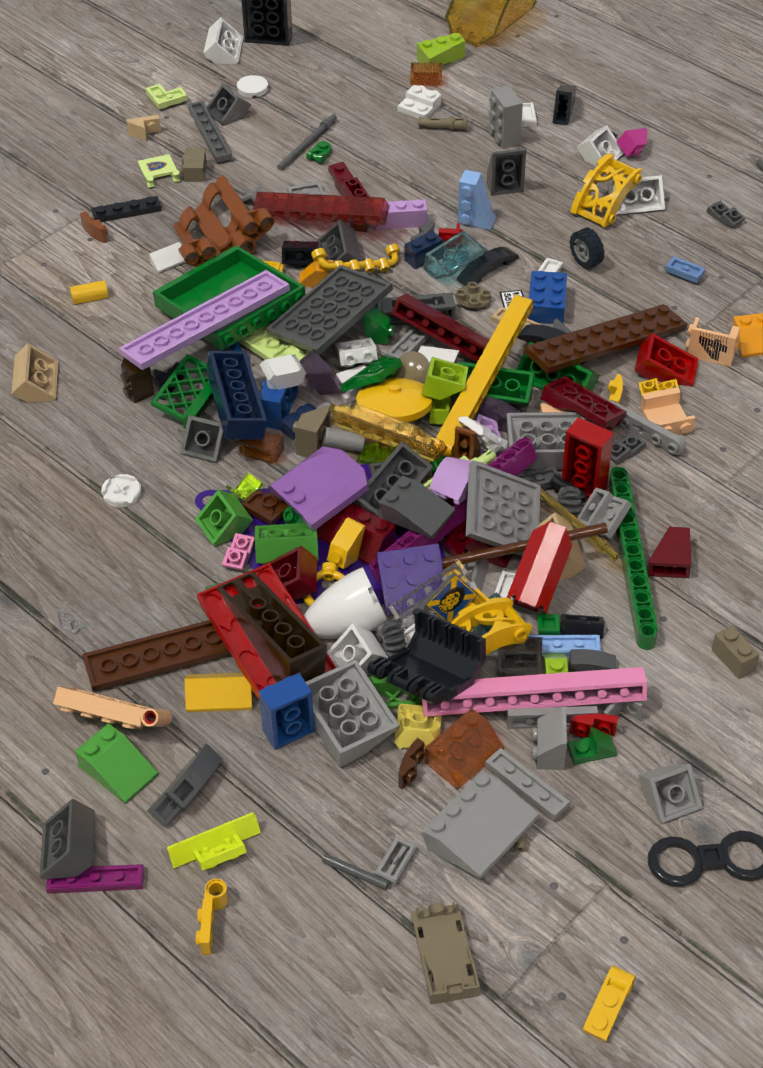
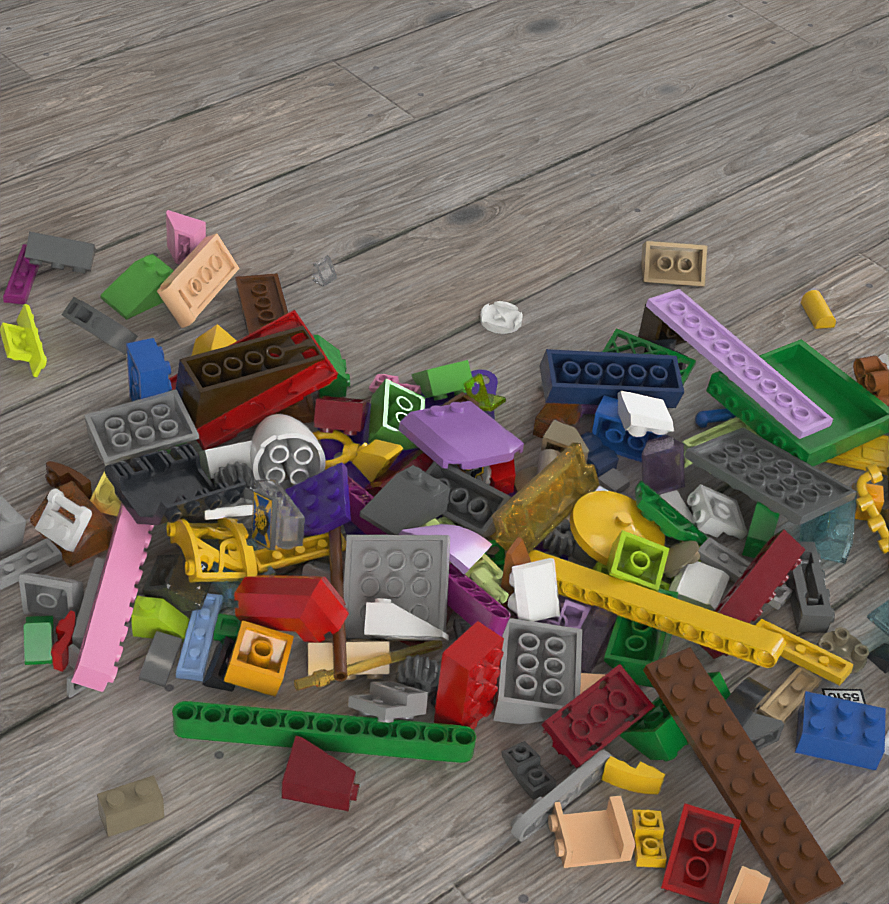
camera: 90 degrees right, 5 degrees down
(41, 732) = (183, 234): none -> bright pink slope
(478, 749) = (60, 528): none -> white plate
(487, 308) = (811, 656): none -> yellow plate
(538, 505) = (389, 621): none -> white slope
(586, 592) = (259, 658): none -> light orange slope

